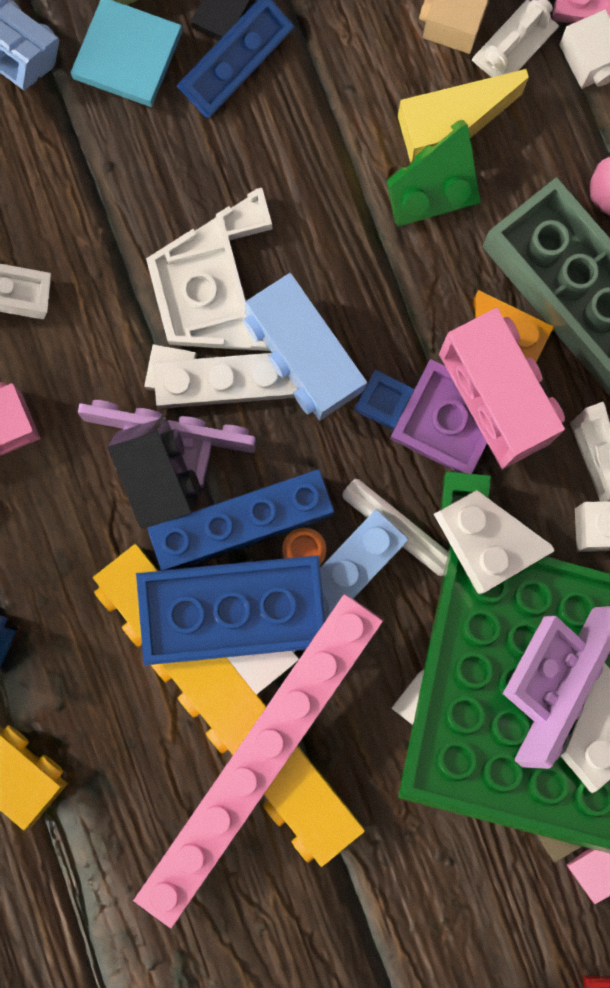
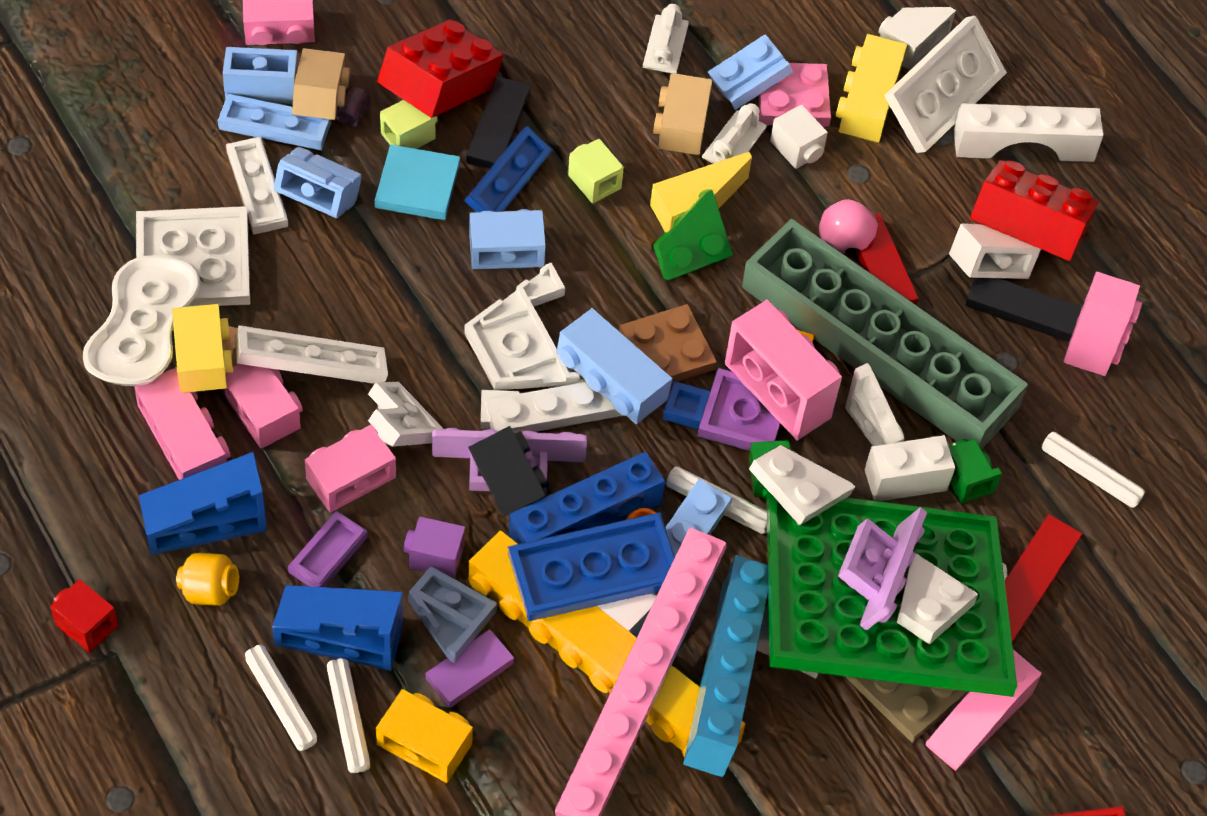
camera: 15 degrees left, 25 degrees down
(60, 376) = (400, 416): none -> white plate
(63, 543) = (435, 546): none -> medium lavender brick
(66, 628) = (450, 611): none -> sand blue wing
(78, 696) = (475, 667): none -> medium lavender tile
(216, 145) = (507, 239): none -> light blue brick
(338, 64) = (595, 170): none -> yellowish green brick
(357, 767) = (728, 667): none -> dark azure brick
(379, 315) = (672, 342): none -> medium nougat plate

